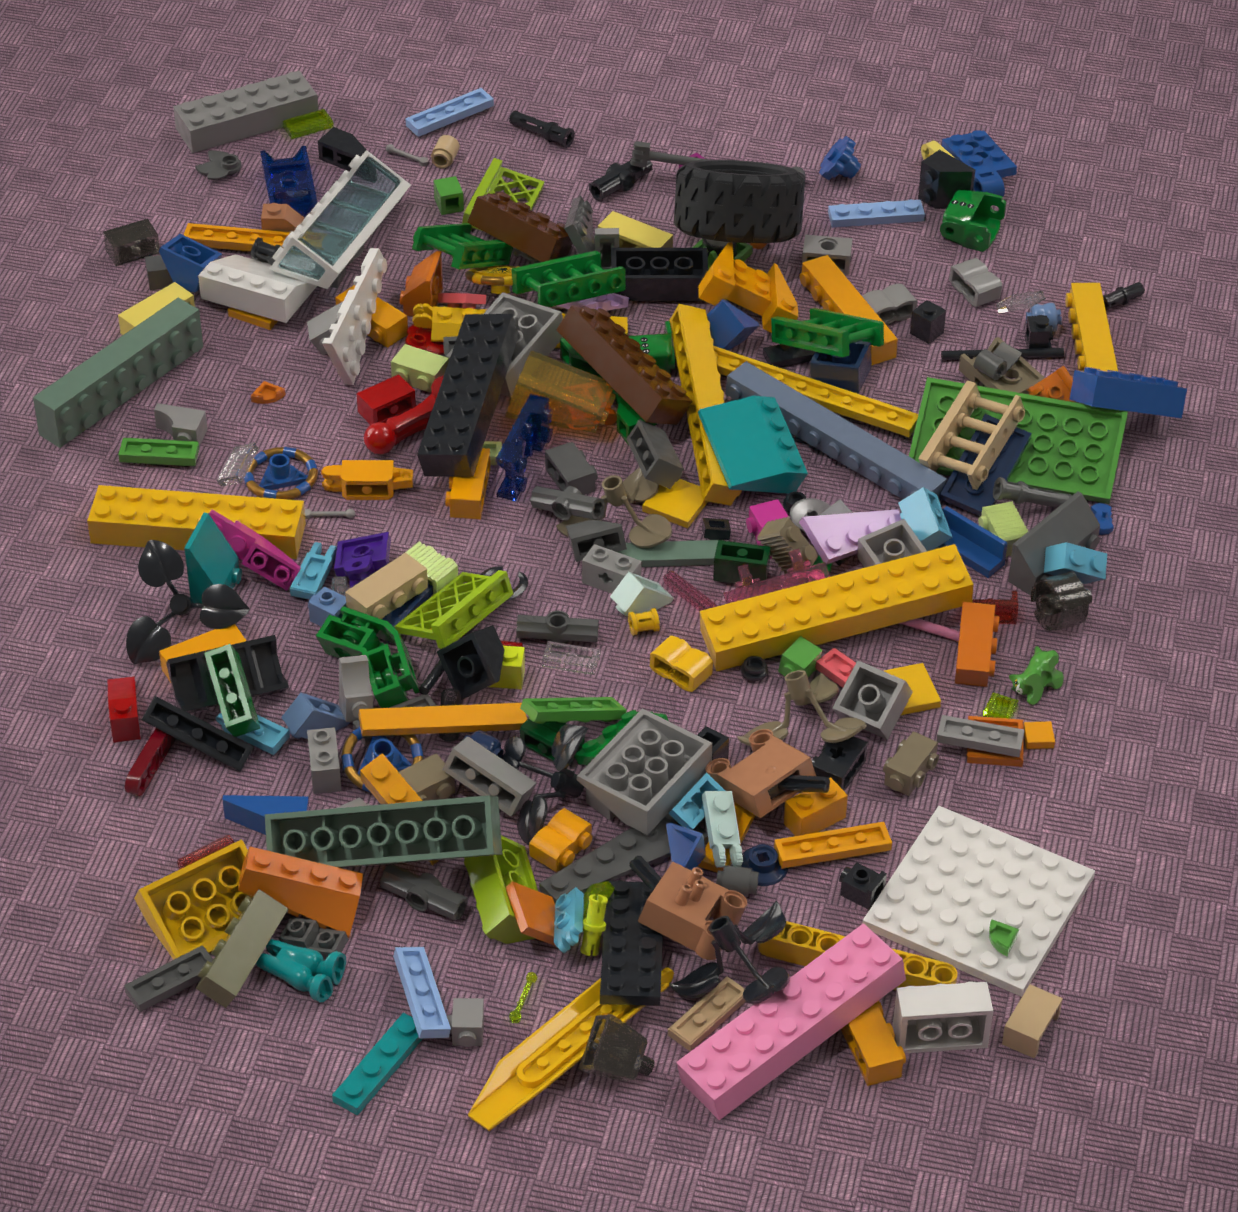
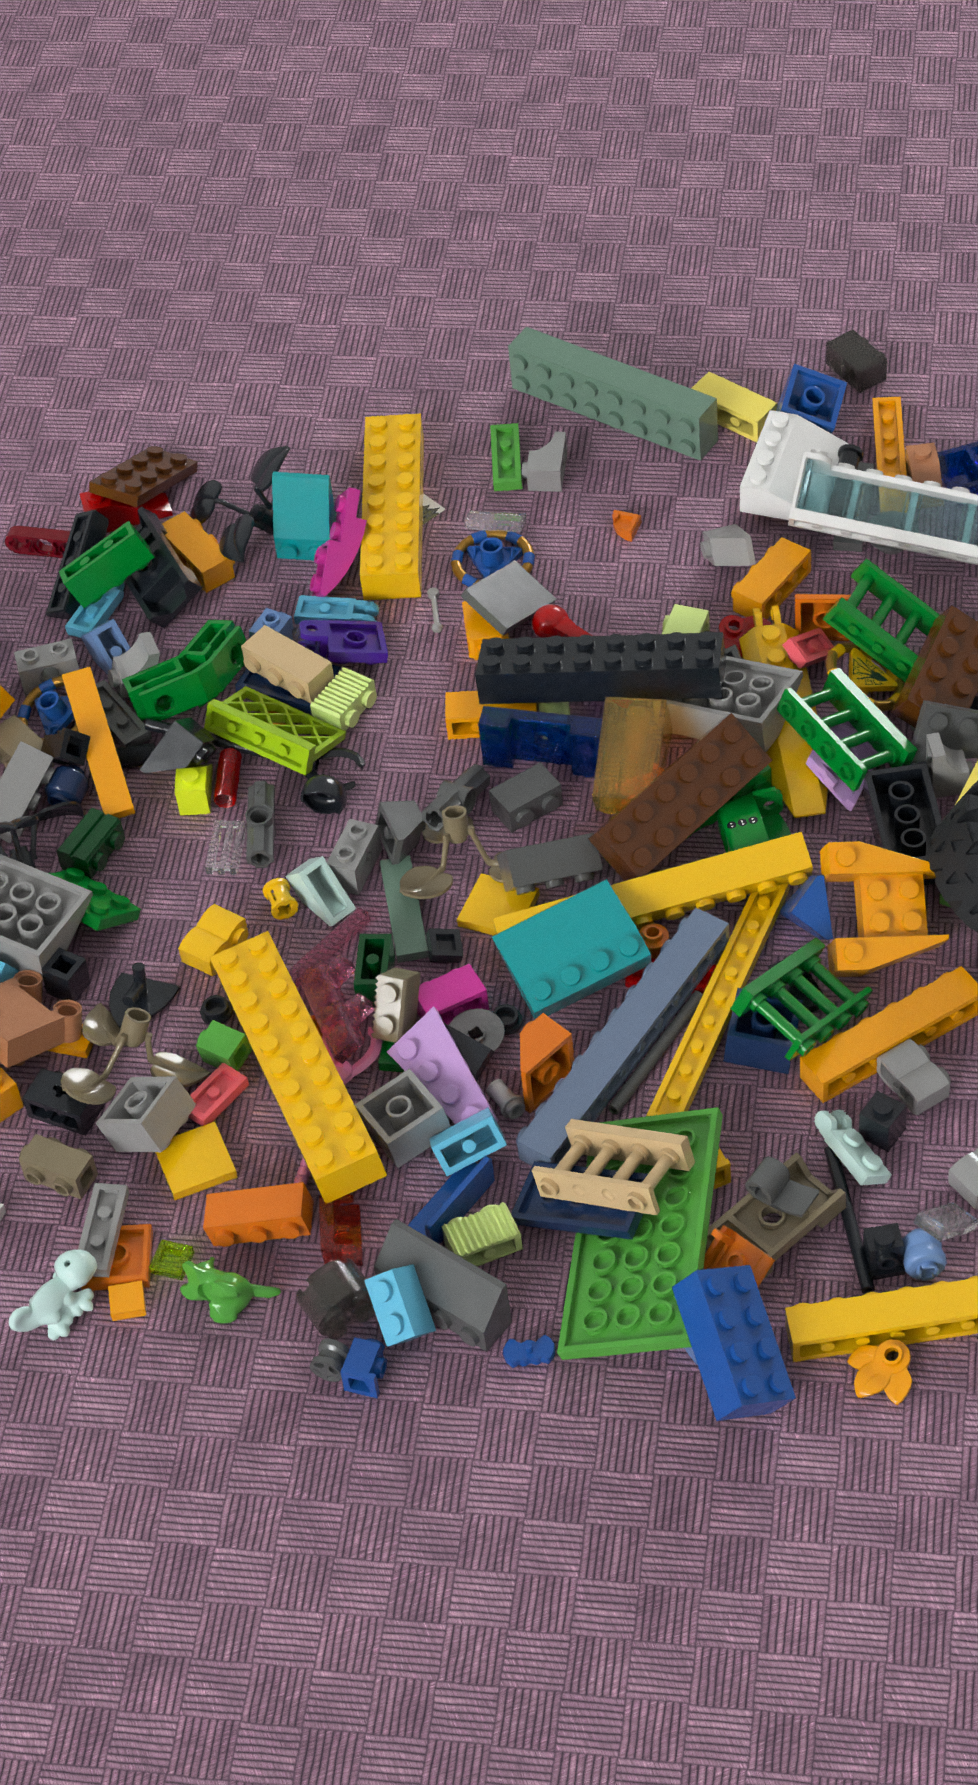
camera: 90 degrees right, 5 degrees up
(97, 678) = (143, 476): none -> reddish brown plate
(350, 452) = (507, 597): none -> tile
(354, 318) = (717, 550): white wing -> none
(385, 400) = (619, 614): red brick -> none
(449, 735) = (66, 747): none -> black brick
(537, 582) = (324, 794): none -> black hair
(572, 709) = (114, 845): bright green plate -> none
(731, 717) = (139, 992): none -> black shield
(855, 475) = (544, 1059): none -> orange slope
(880, 504) = (511, 1105): none -> light grey pin
(946, 341) = (851, 1148): none -> light aqua hinge
(1021, 493) = (537, 1242): dark grey pin -> none
(1043, 768) = (55, 1301): none -> light aqua animal
(1108, 616) = (329, 1360): none -> dark grey wheel
(1115, 599) = (364, 1367): none -> blue brick
(1132, 352) = (880, 1374): none -> light orange plate

